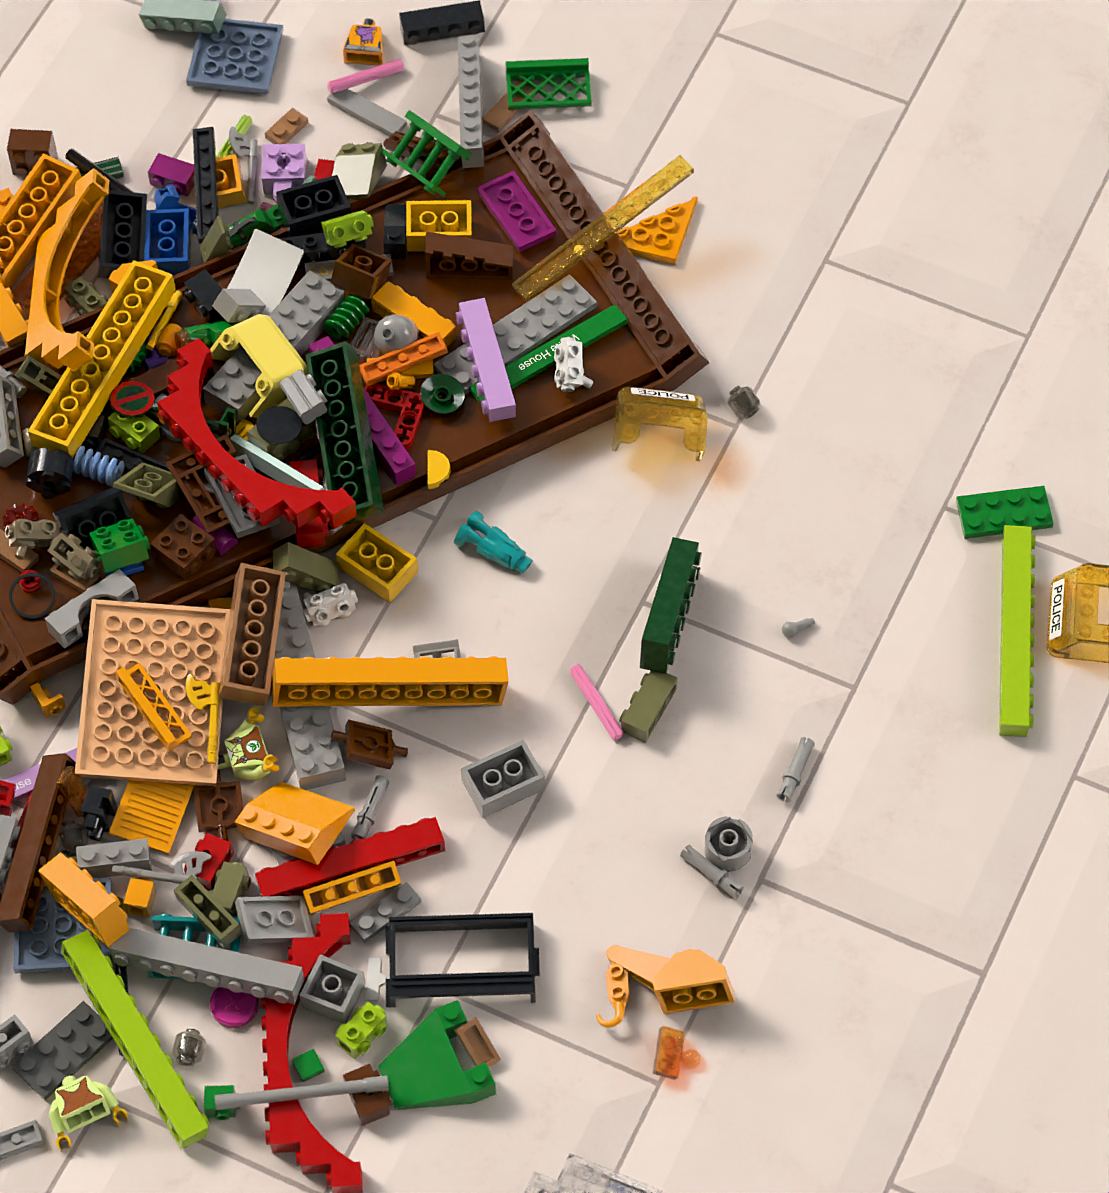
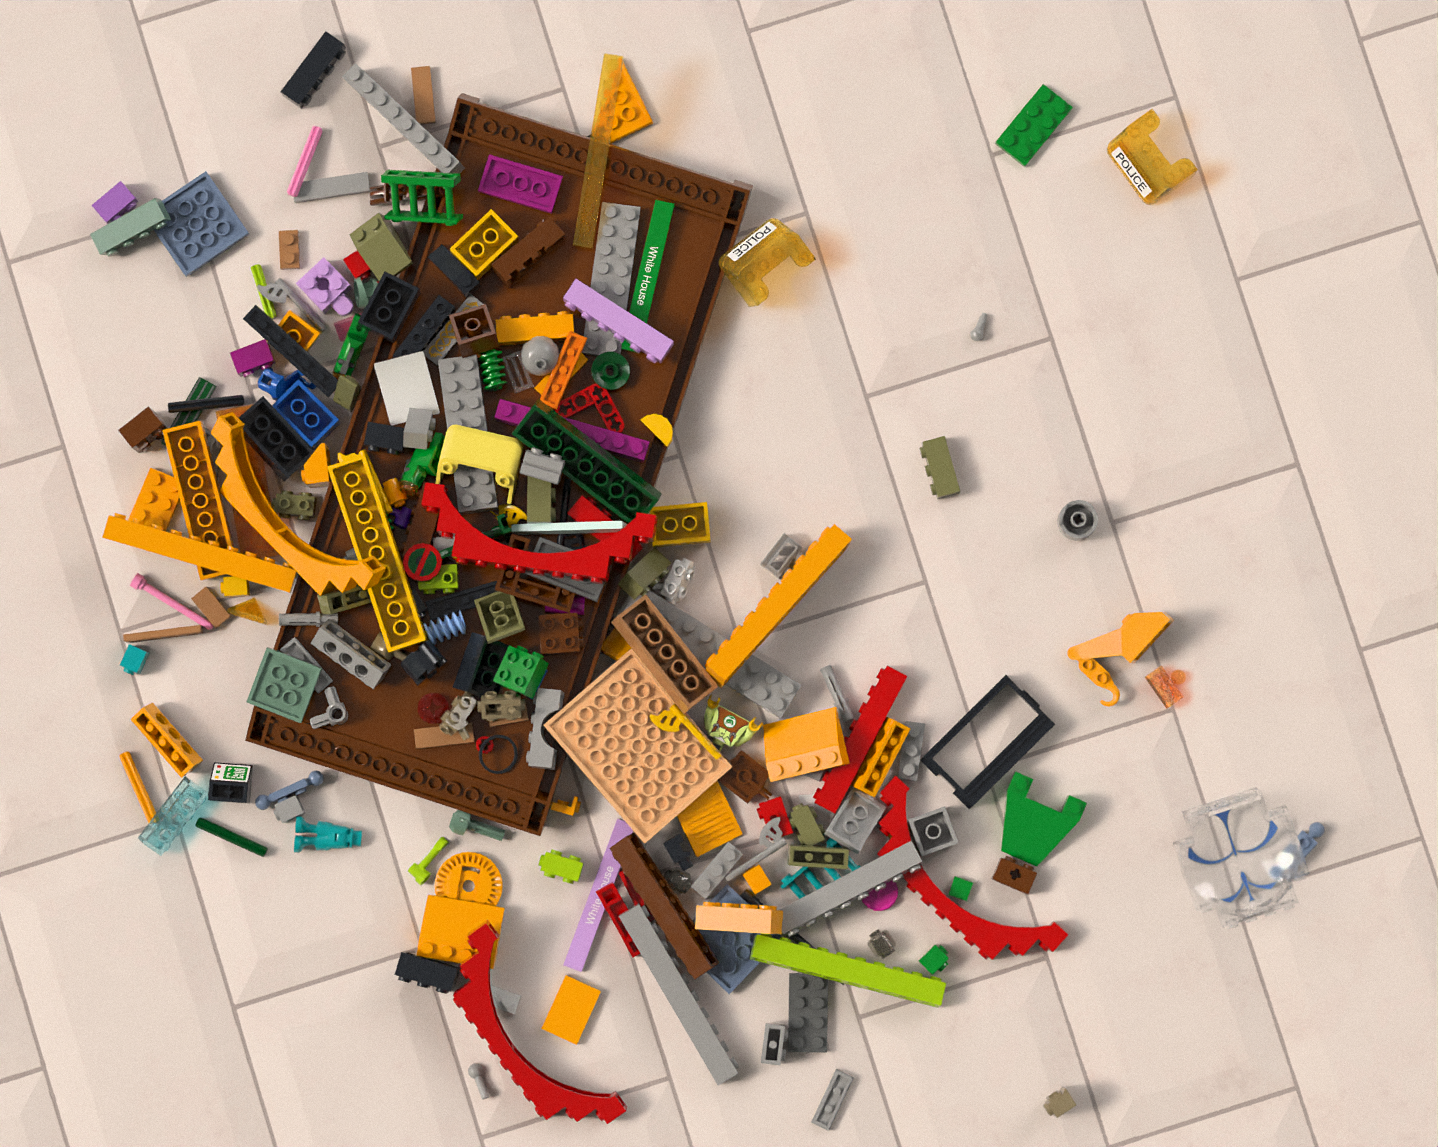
camera: 40 degrees left, 25 degrees up
(72, 789) = (652, 851): clear orange plate -> none
(80, 1104) = (856, 1037): yellowish green torso -> none
(149, 709) = (661, 766): light orange fence -> none
(235, 1100) = (948, 953): light grey piece -> none
(278, 424) = (543, 499): black piece -> none
(347, 227) = (438, 309): lime brick -> none
(362, 1029) = (972, 838): lime brick -> none
(364, 44) = (277, 134): light orange torso -> none
(369, 744) = (798, 653): reddish brown plate -> none
(374, 979) = (944, 798): white sticker -> none
(397, 381) = (574, 389): light orange pin -> none
(477, 1043) = (1050, 786): medium nougat tile -> none
(496, 544) = (740, 441): teal piece -> none
(503, 778) = (902, 601): light grey brick -> none
(547, 71) = (424, 46): green fence -> none
(570, 366) = (673, 275): white brick -> none
(596, 702) = (905, 494): bright pink axle -> none
(670, 605) = (896, 391): dark green brick -> none
(719, 877) = (1081, 545): light grey pin -> none
(743, 402) = (798, 193): clear smoke head -> none
(792, 776) = (1069, 430): light grey pin -> none
(1015, 631) = (1117, 209): lime brick -> none

